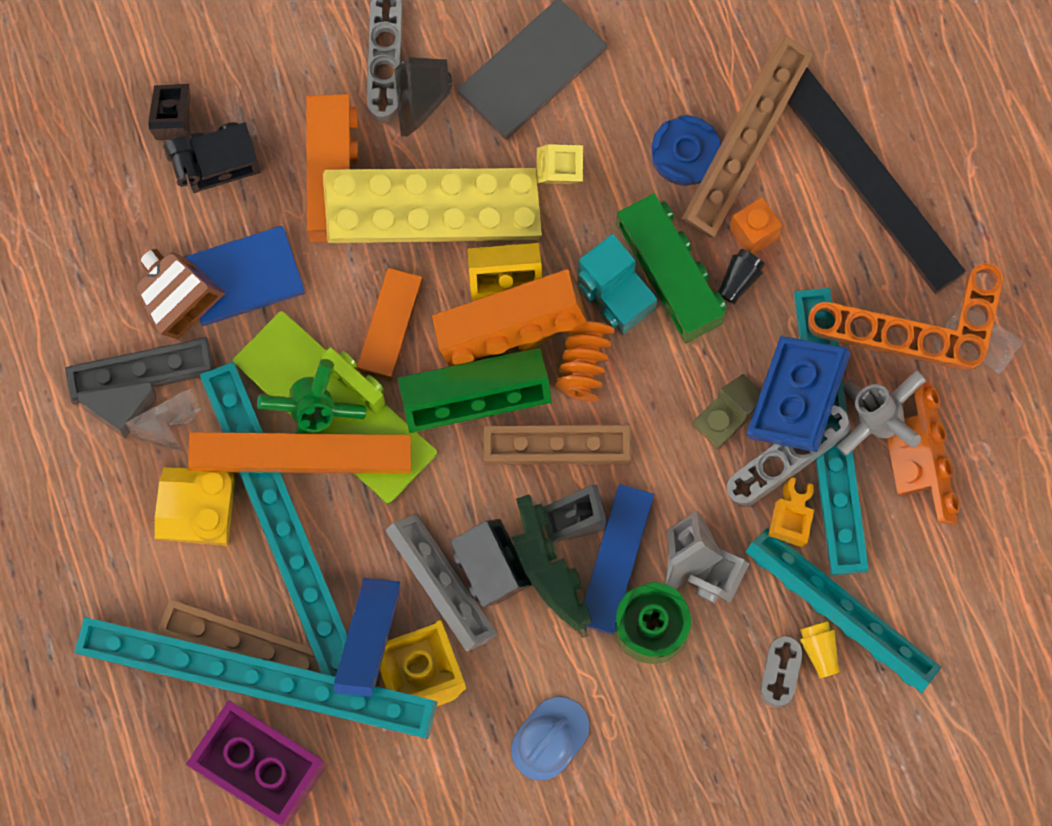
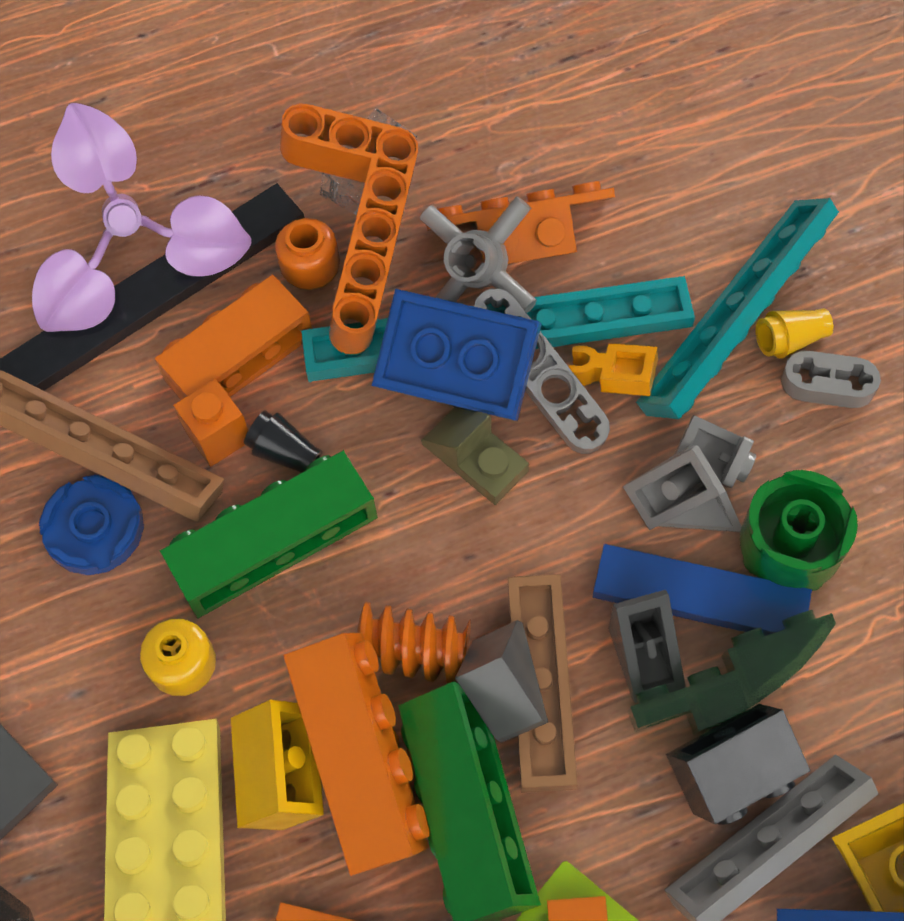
camera: 90 degrees left, 10 degrees down
(554, 414) = (503, 682): none -> dark grey slope
(559, 164) = (106, 690): light yellow brick -> none
(581, 208) = (178, 657): none -> yellow head
(611, 281) = (299, 602): teal brick -> none
(821, 241) = (236, 341): none -> orange brick
(894, 291) = (307, 253): none -> orange head
(956, 128) = (93, 153): none -> lavender plant

